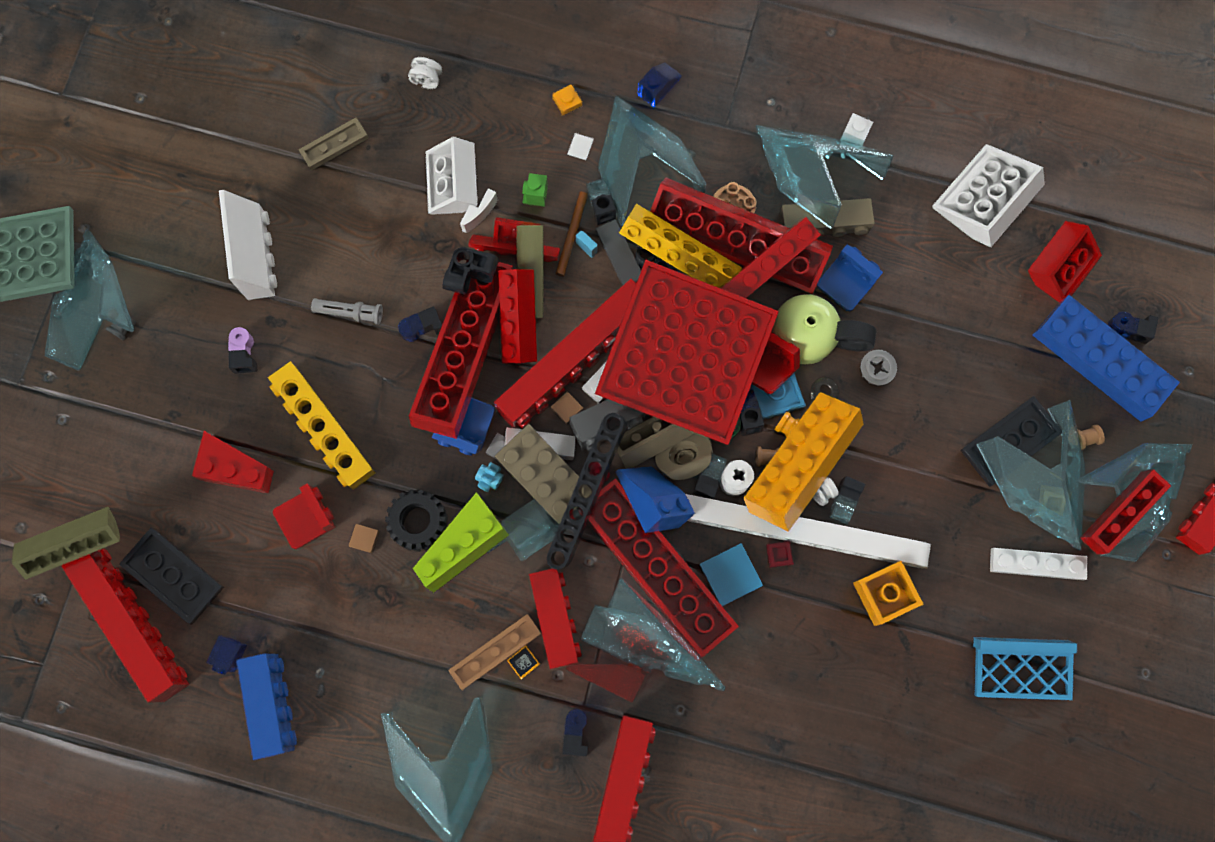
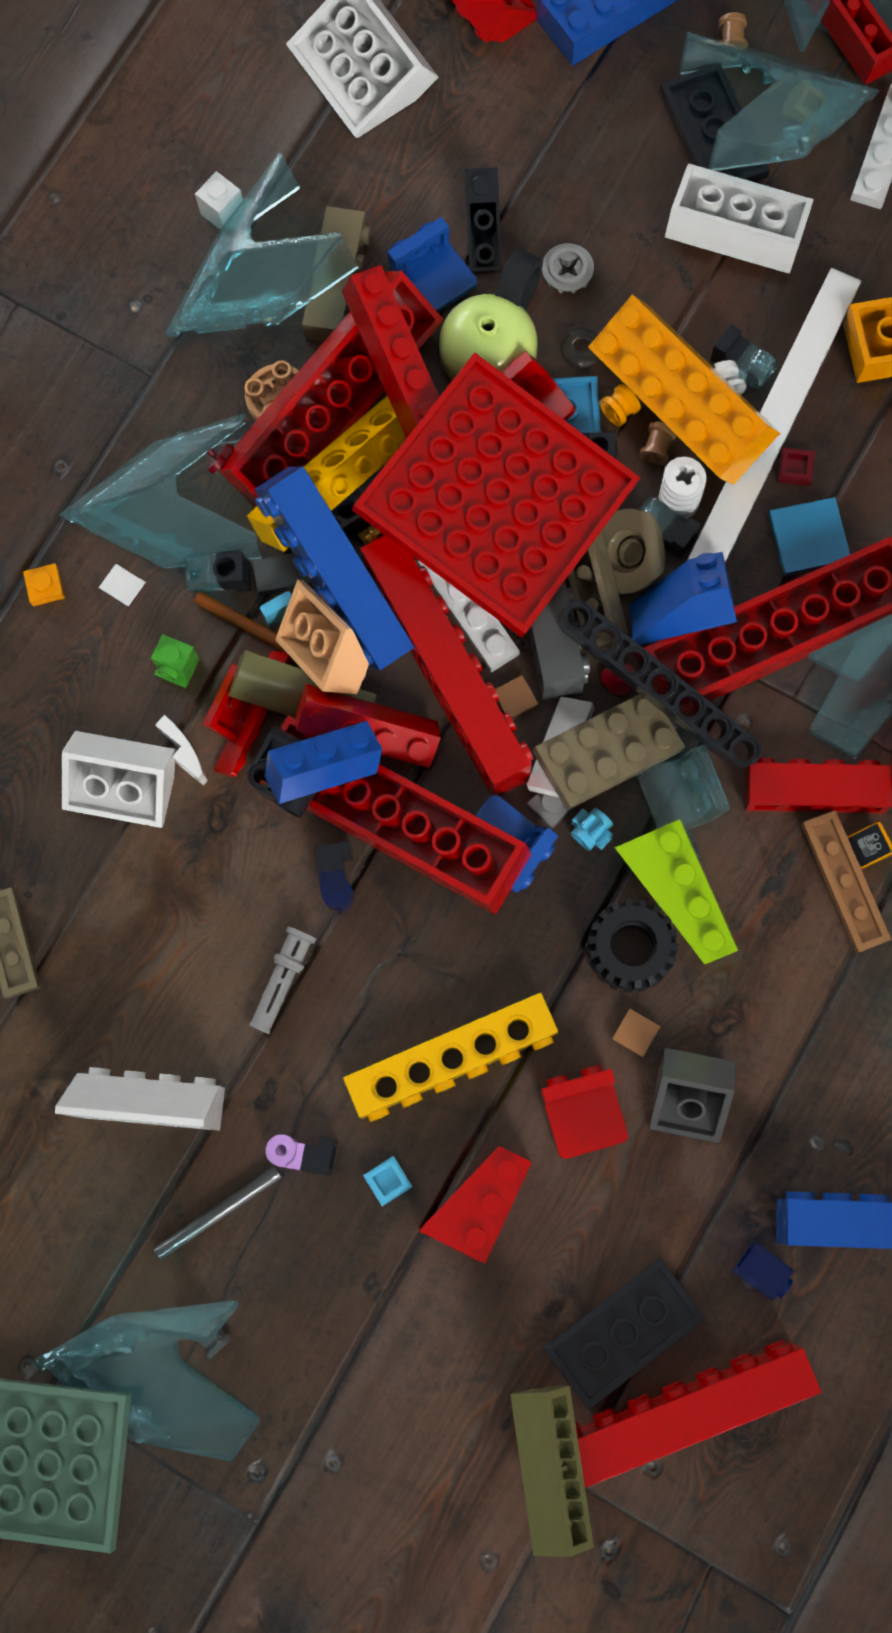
camera: 65 degrees left, 0 degrees up
(196, 311) = (217, 1212): none -> dark grey bar
(237, 408) = (387, 1181): none -> medium azure tile
(330, 583) = (693, 1095): none -> dark grey slope
(476, 289) = (322, 762): none -> blue brick
(561, 272) = (321, 642): none -> light nougat slope
(611, 262) = (331, 564): none -> blue brick
(657, 83) = (61, 449): clear blue slope -> none
(672, 177) = (219, 457): none -> dark red piece
(897, 302) = (483, 219): none -> black slope
(947, 471) = (738, 218): none -> white slope

